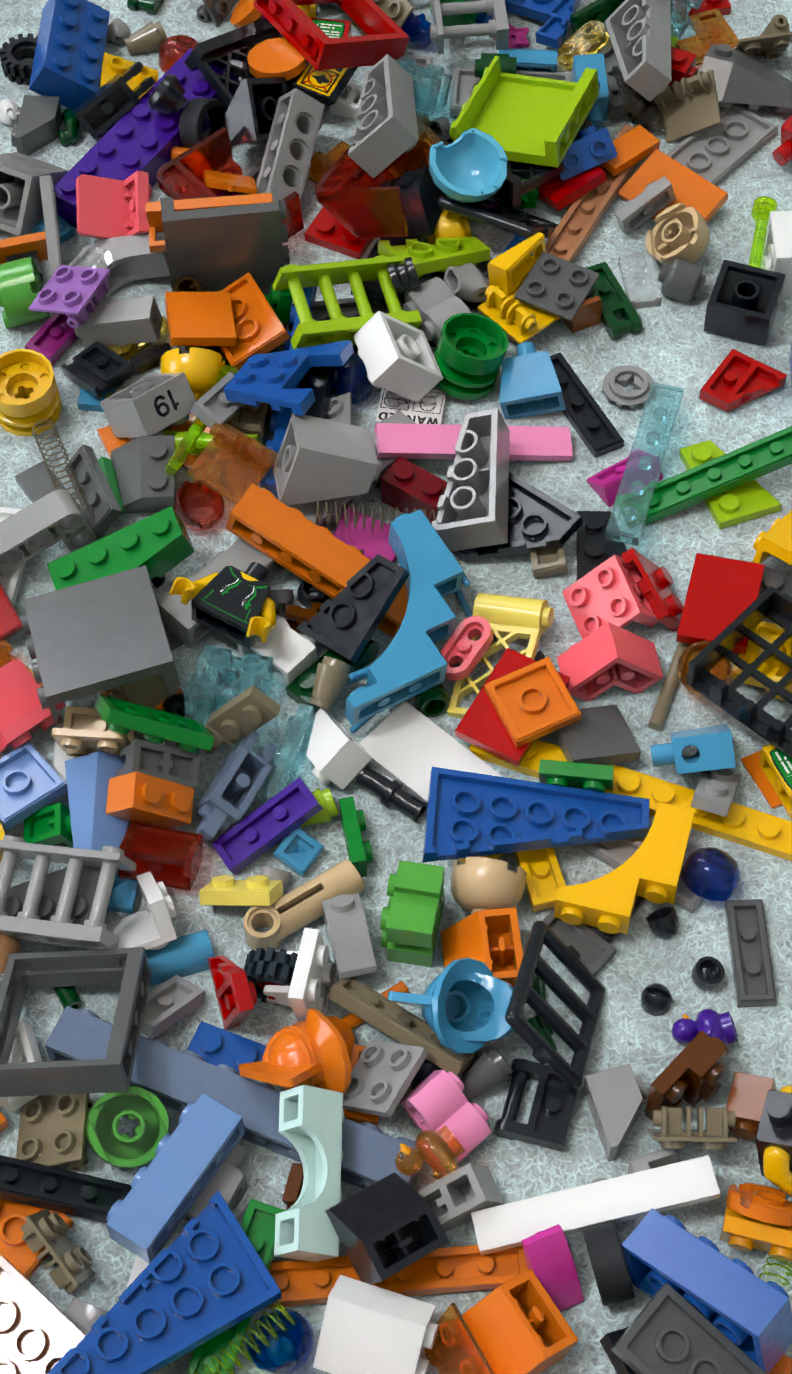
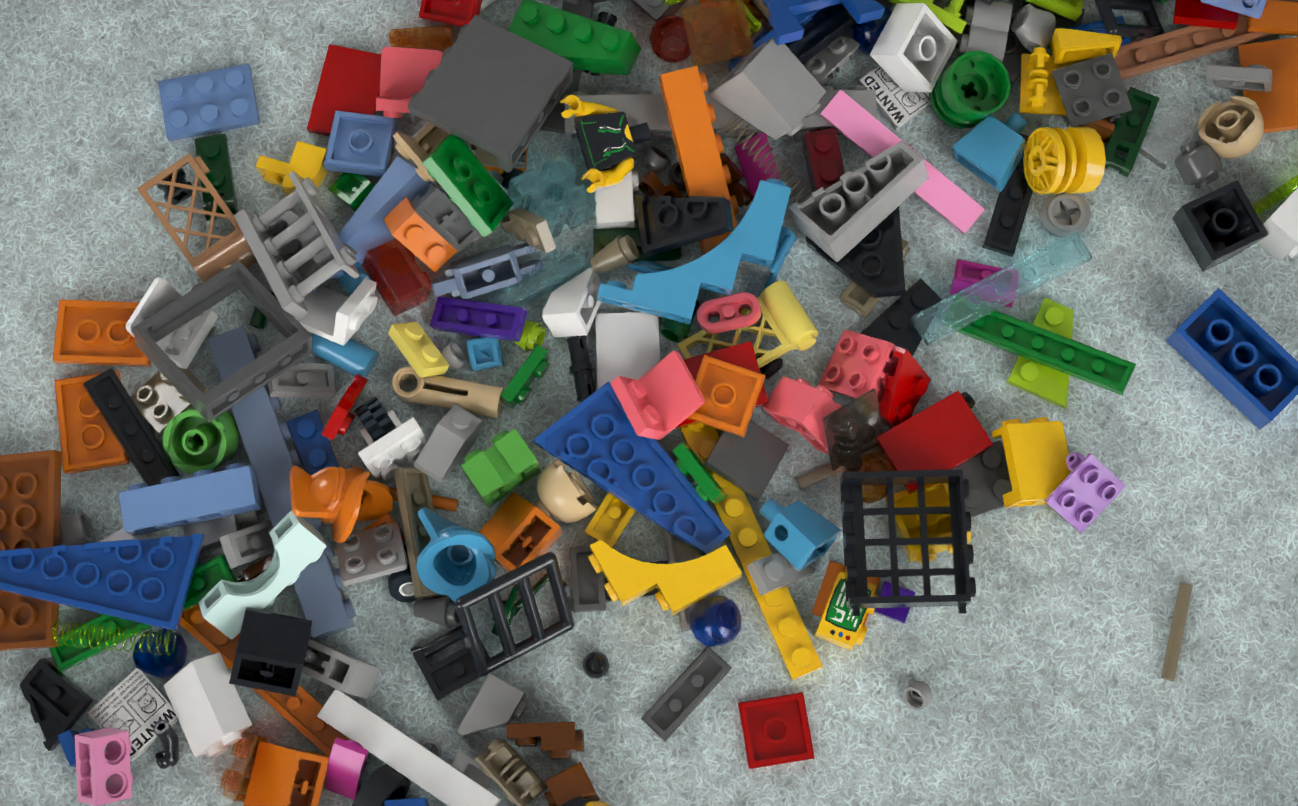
camera: 45 degrees right, 20 degrees up
(50, 1231) = (93, 476): dark tan hinge -> none
(265, 1170) = (248, 544): none -> light grey plate
(436, 1148) = (349, 629): clear orange animal -> none
(440, 1103) = (387, 614): bright pink brick -> none
(486, 738) = (659, 397): none -> coral bracket
(591, 343) = (1064, 160): none -> yellow wheel
(658, 641) = (853, 431): none -> clear smoke hinge
(663, 921) = (654, 620): black hinge -> none
(710, 1022) = (602, 718): dark purple animal -> none
(714, 971) = (646, 686): black hinge -> none
(740, 381) = (1148, 284): red wing -> none

